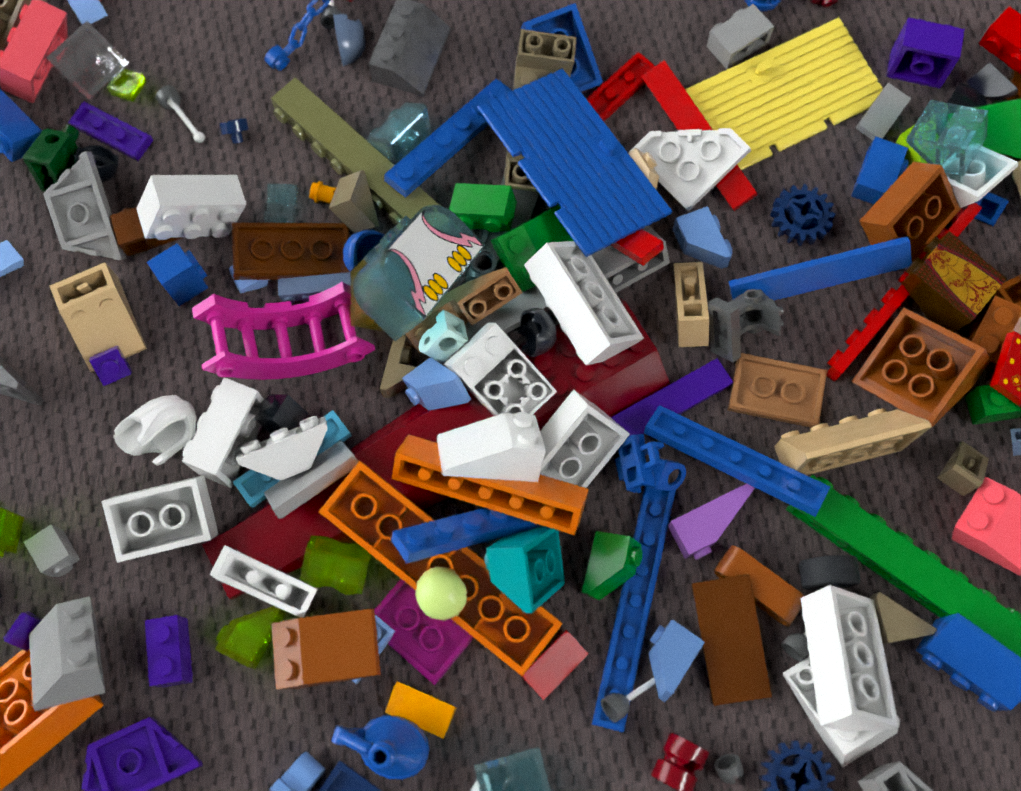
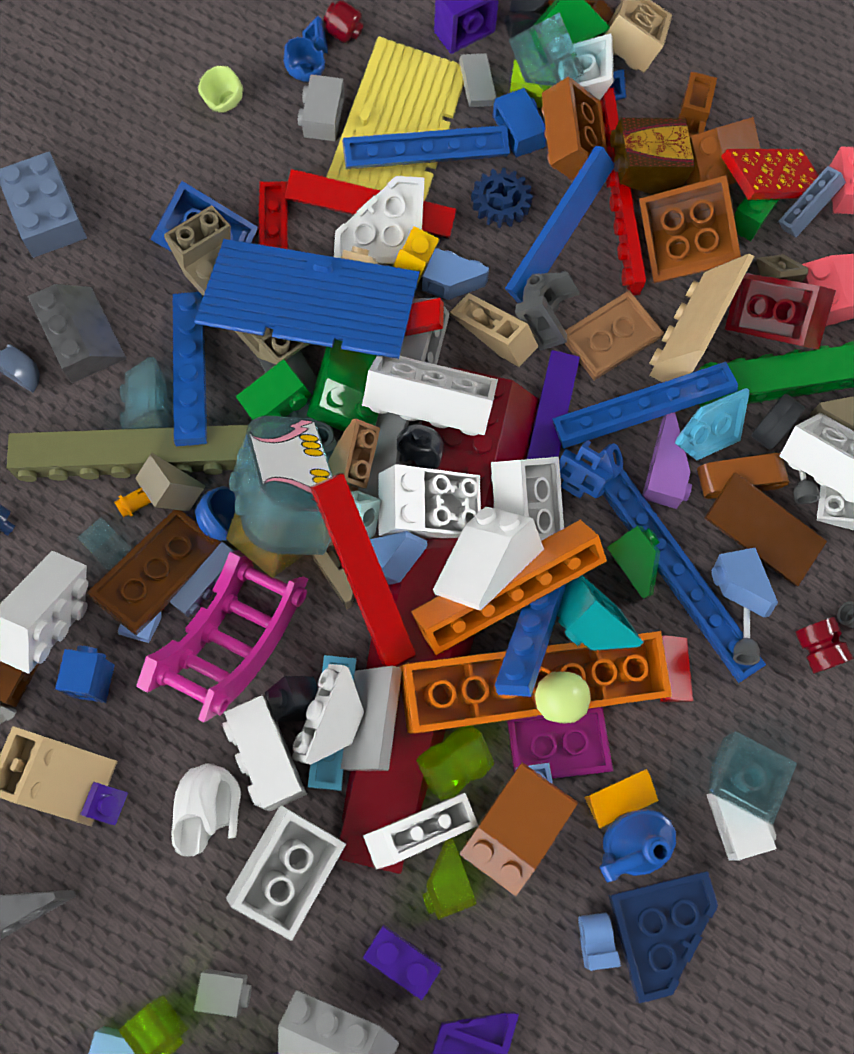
camera: 55 degrees left, 0 degrees up
(399, 373) = (363, 570): none -> red tile
(687, 198) = (416, 251): none -> yellow slope
(772, 526) = (715, 426): none -> medium azure tile
(785, 129) = (425, 147): none -> blue plate
(925, 494) = (780, 310): none -> dark red slope

